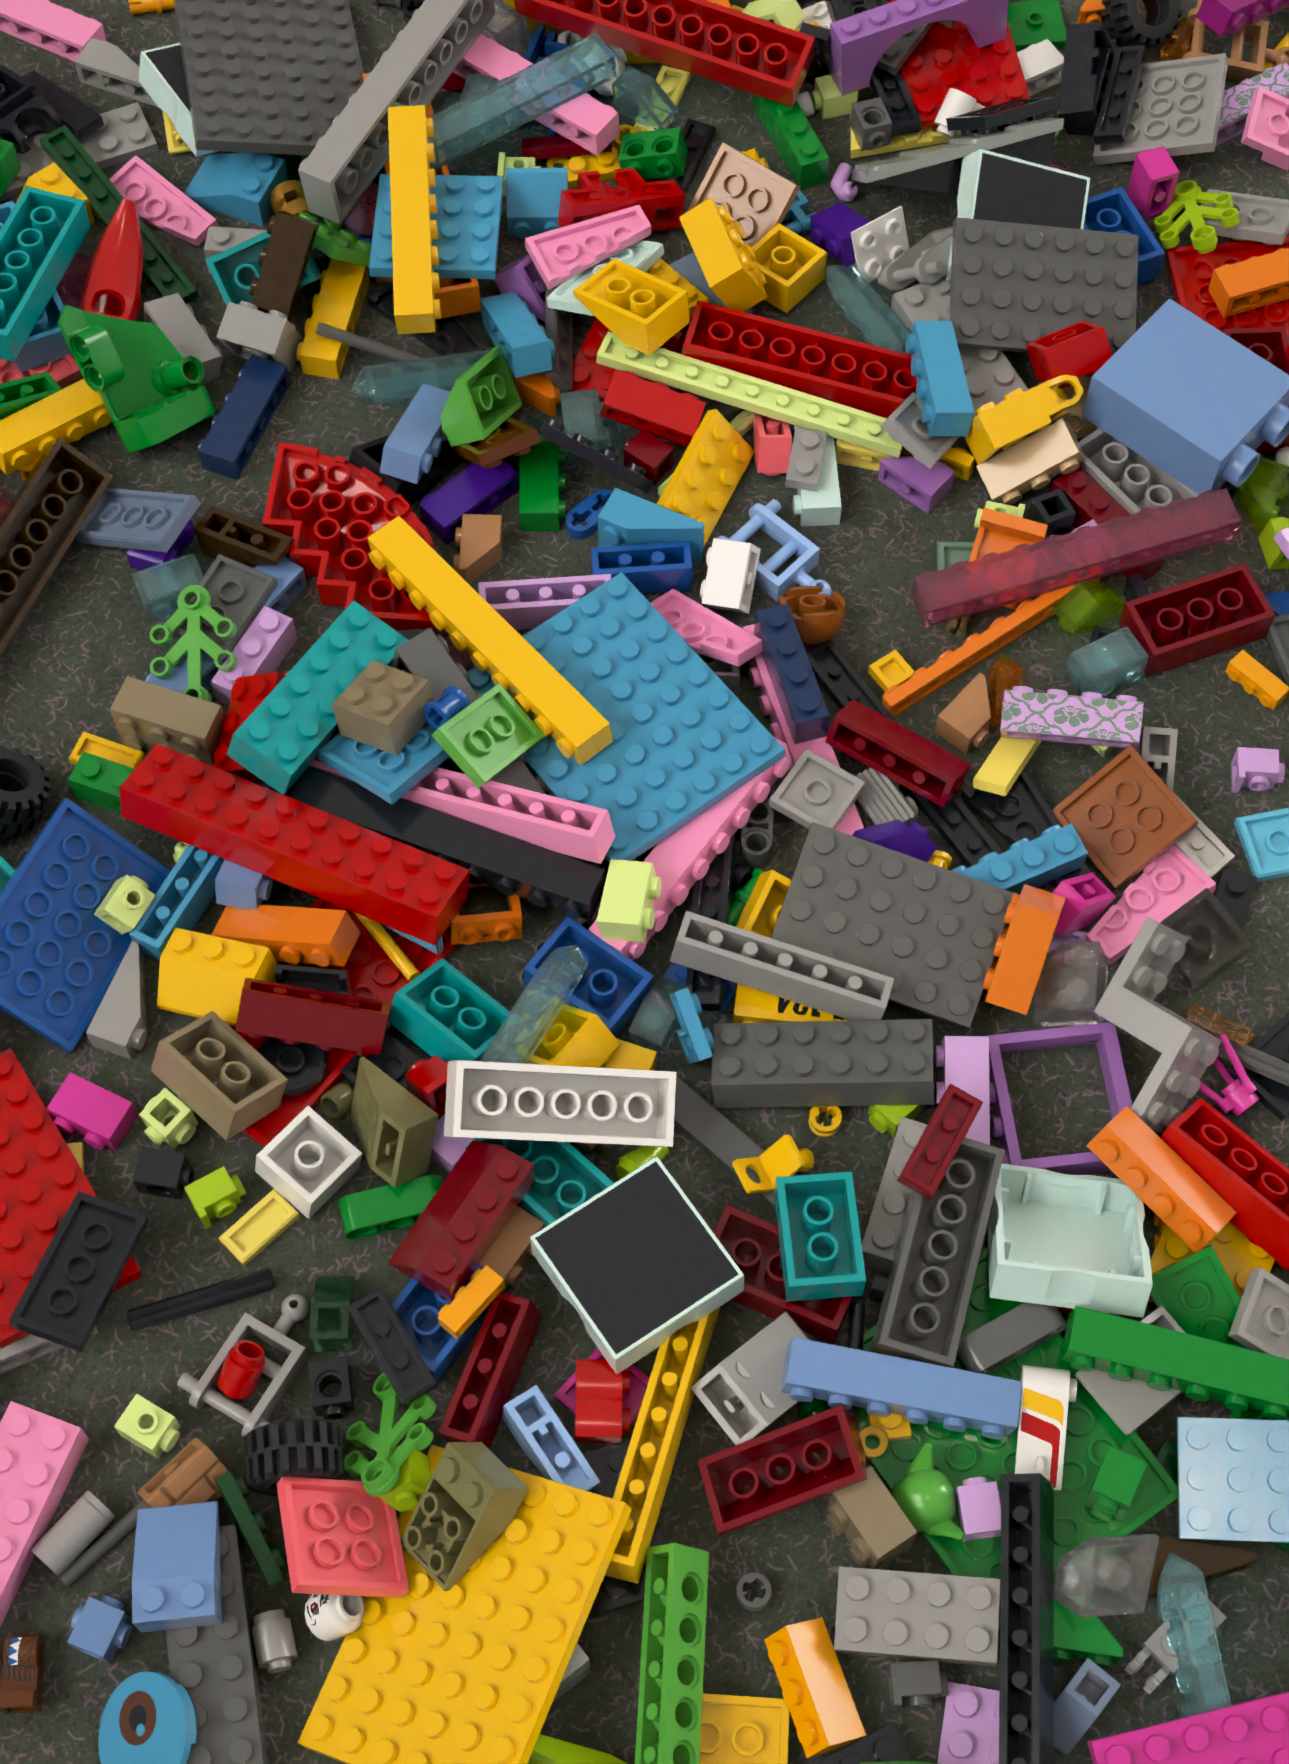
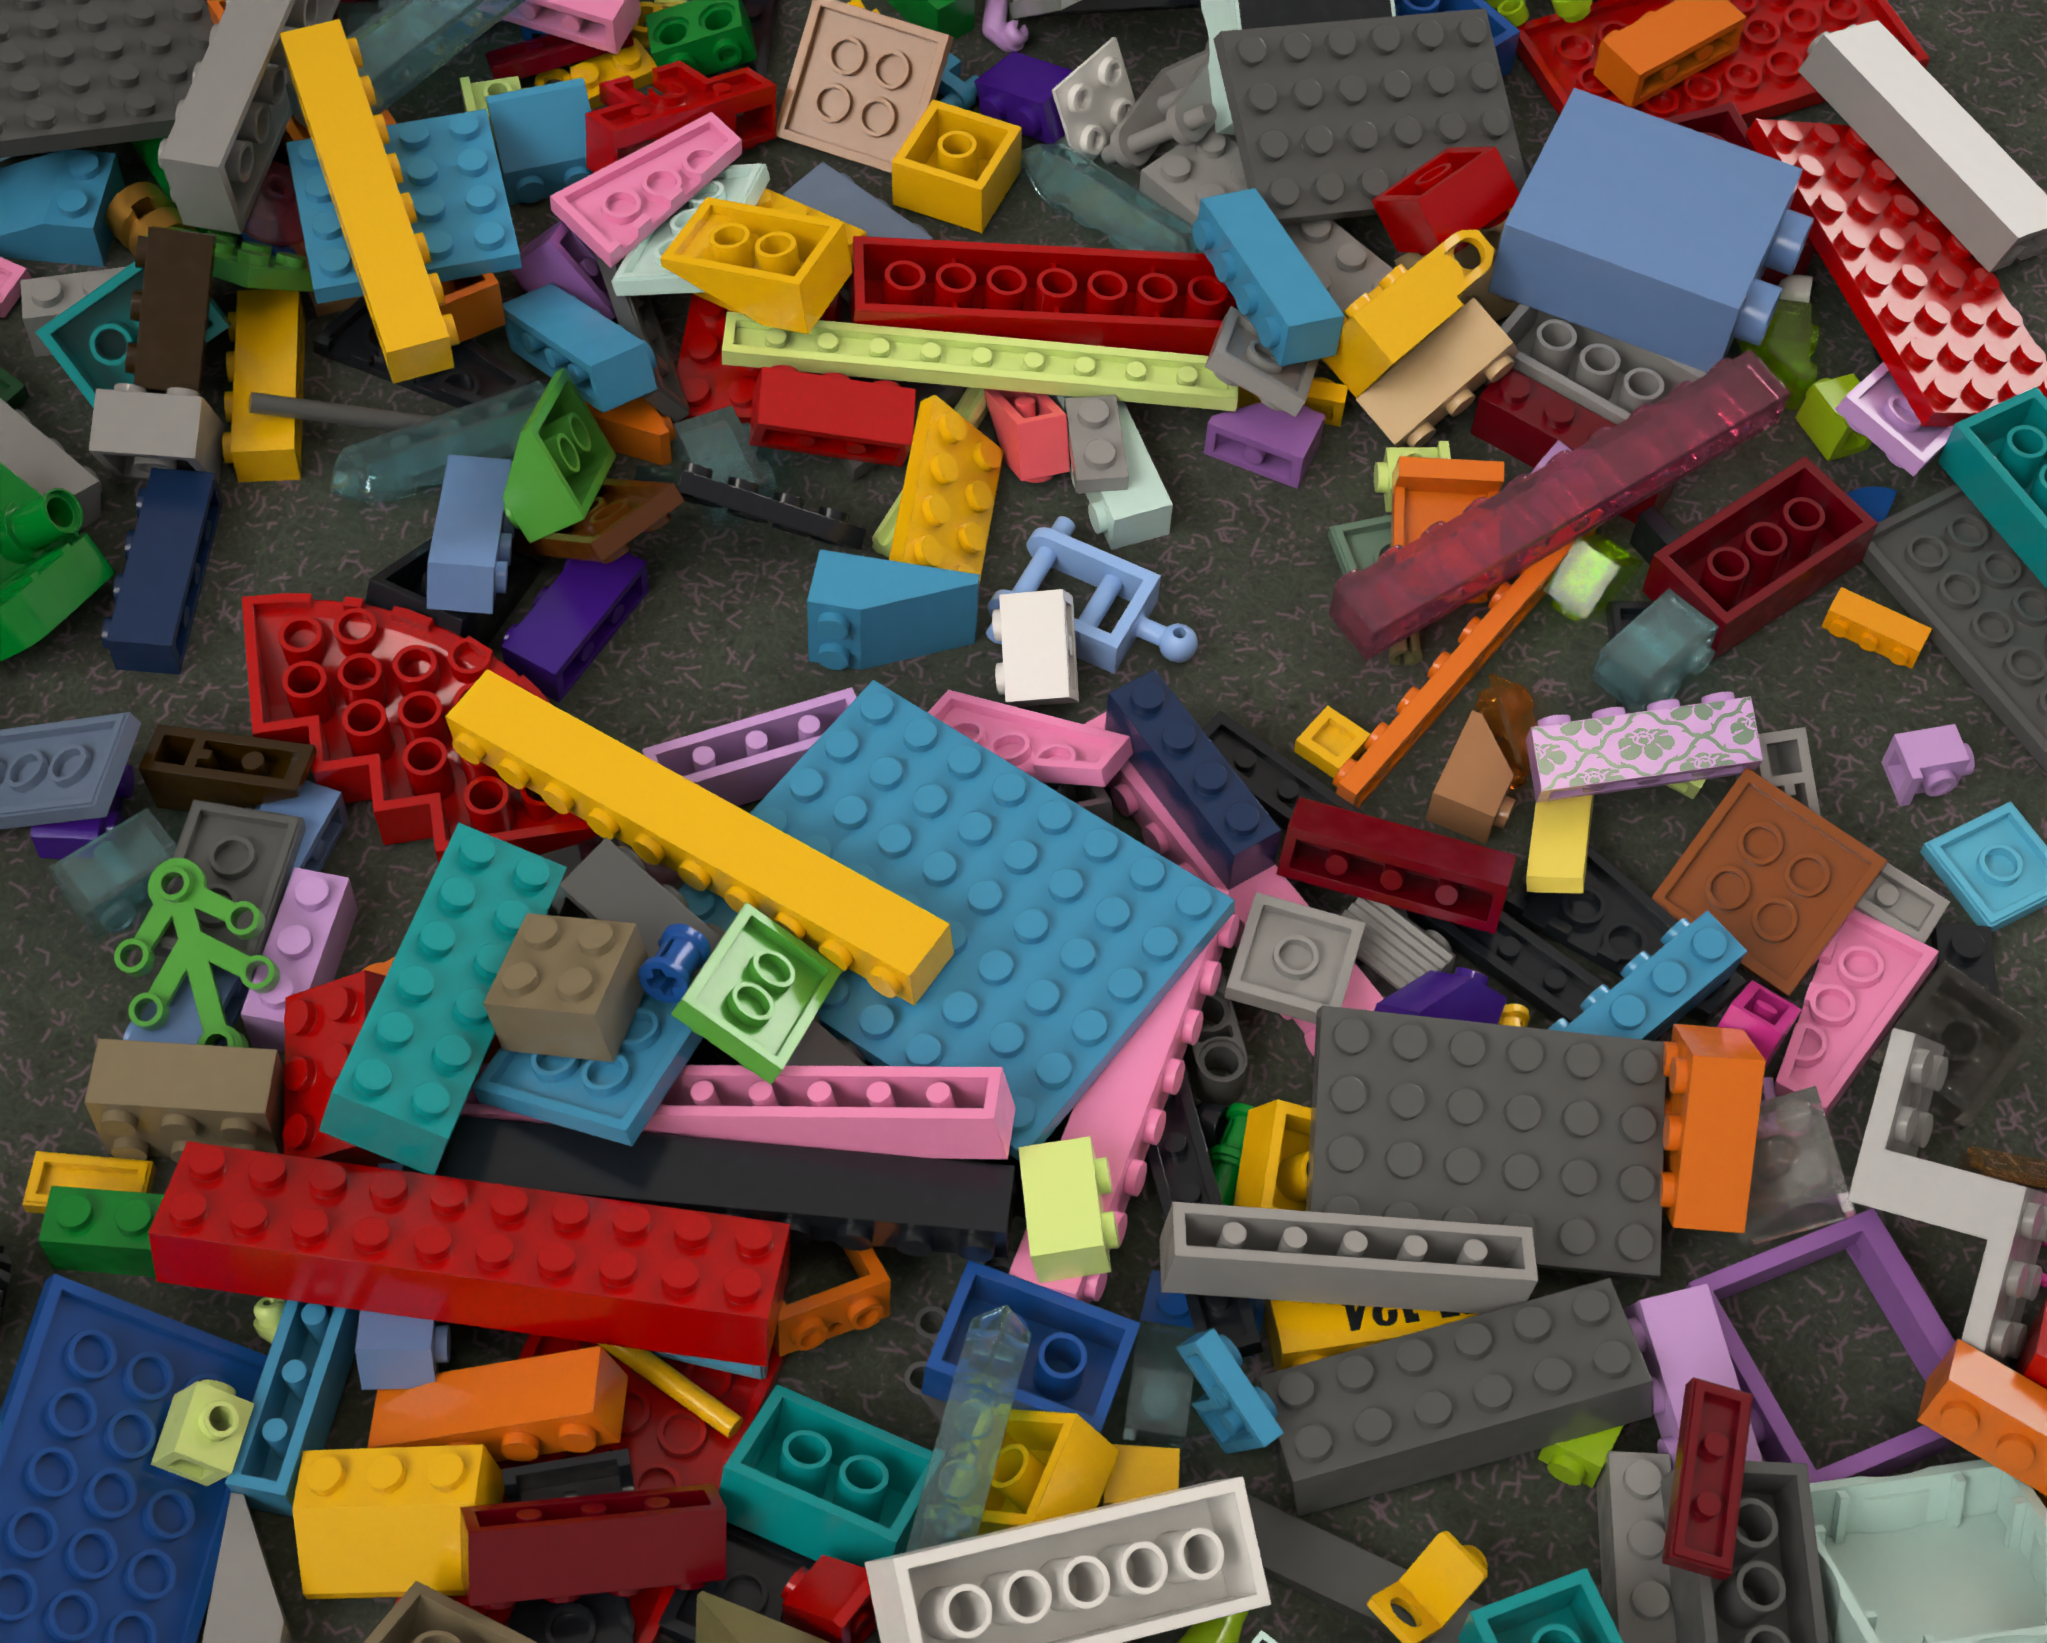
camera: 20 degrees left, 5 degrees down
(479, 545) = (617, 685): medium nougat slope -> none
(541, 486) = (689, 581): green brick -> none
(588, 511) = (771, 596): blue beam -> none
(647, 566) = (911, 659): blue brick -> none
(650, 454) = (843, 487): dark red brick -> none
(724, 255) = (875, 159): yellow brick -> none
(815, 614) = (1197, 674): dark orange cylinder -> none
(819, 1129) = (1477, 1507): yellow bush -> none
(858, 456) = (1170, 423): light yellow tile -> none
(1054, 511) = (1494, 438): black brick -> none

